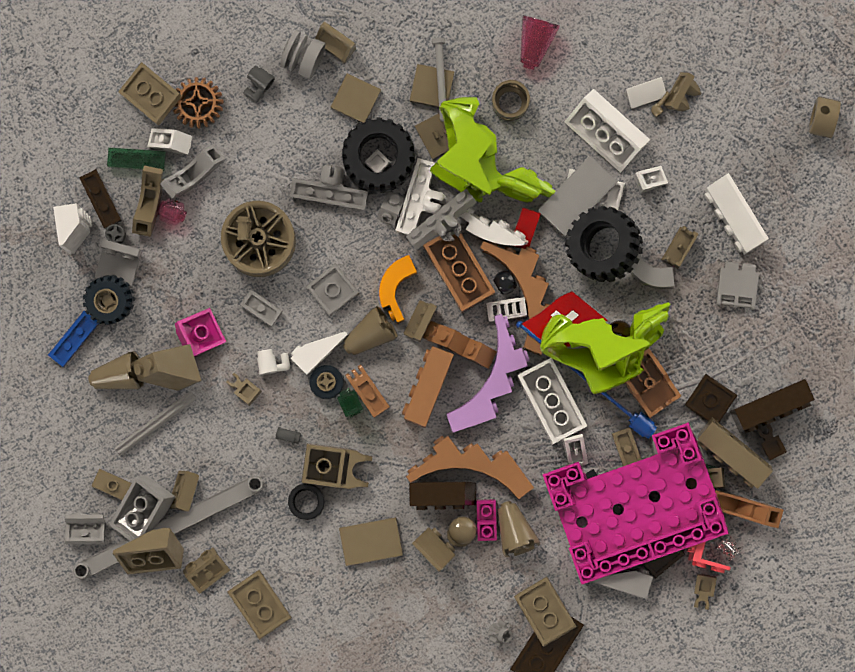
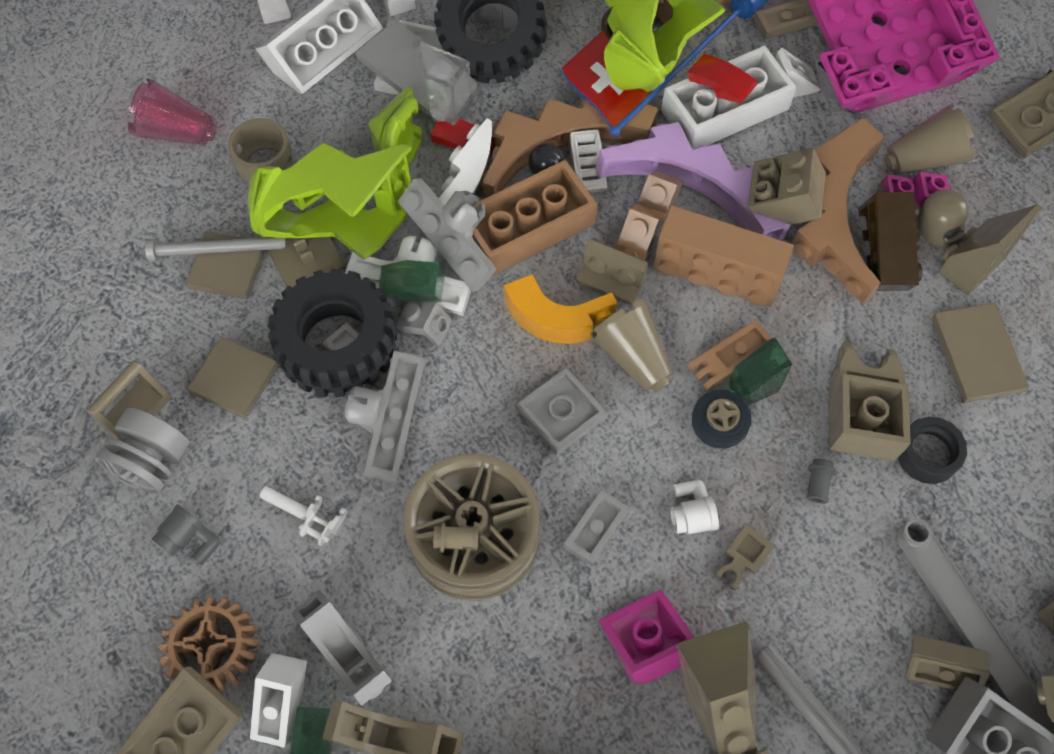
camera: 90 degrees left, 20 degrees down
(171, 211) = (415, 693): clear pink head -> none
(273, 144) = (305, 513): none -> white piece
(313, 353) = (675, 438): white slope -> none
(410, 199) = (412, 280): none -> clear green slope
(473, 430) = (788, 187): none -> dark tan slope
(547, 211) = (442, 81): none -> clear slope
(554, 393) = (726, 79): none -> red slope

